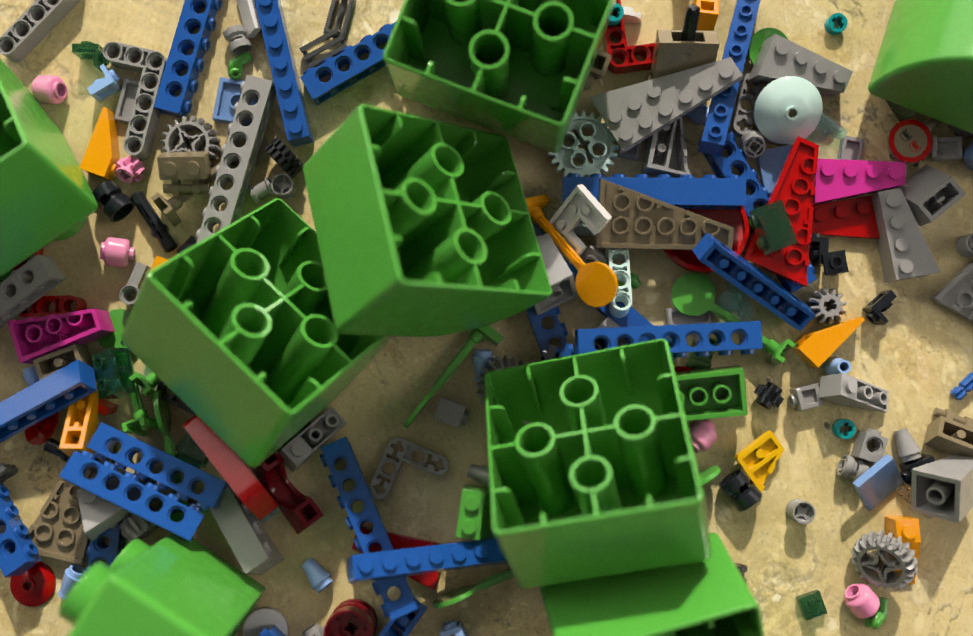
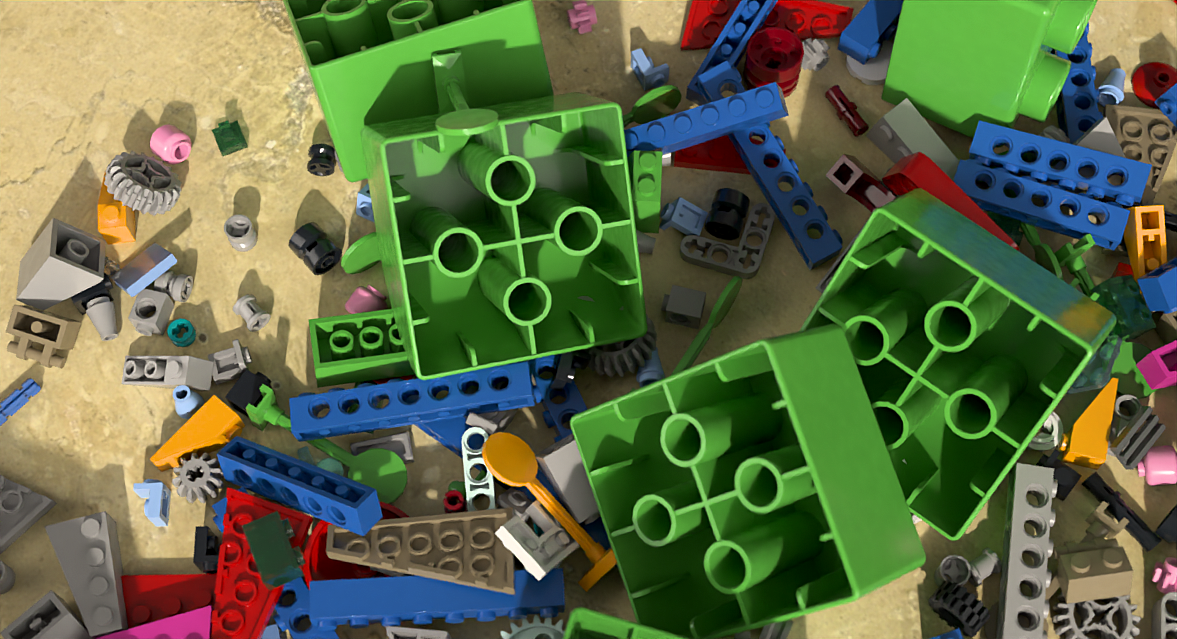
camera: 175 degrees right, 20 degrees down
(128, 269) = (1140, 441): none -> dark grey tile
(290, 566) = (846, 110): none -> dark red pin
(317, 575) = (822, 117): light blue cone -> none
(404, 497) = (727, 214): none -> black wheel
(443, 491) = (683, 217): none -> light blue bracket
(614, 316) = (478, 421): none -> light grey tile
(626, 518) = (452, 96): none -> bright green piece
(638, 261) = (451, 502): none -> dark red pin
(760, 458) = (289, 288): yellow wing -> none
(768, 395) = (278, 360): black gear -> none
(787, 431) = (251, 313): none -> light grey bush
(790, 370) = (247, 391): none -> black brick
(834, 263) = (185, 530): black bracket -> none
(854, 291) = (158, 504): none -> light blue bracket
(878, 305) = (121, 488): black bracket -> none
(881, 615) = (146, 134): bright green arm -> none

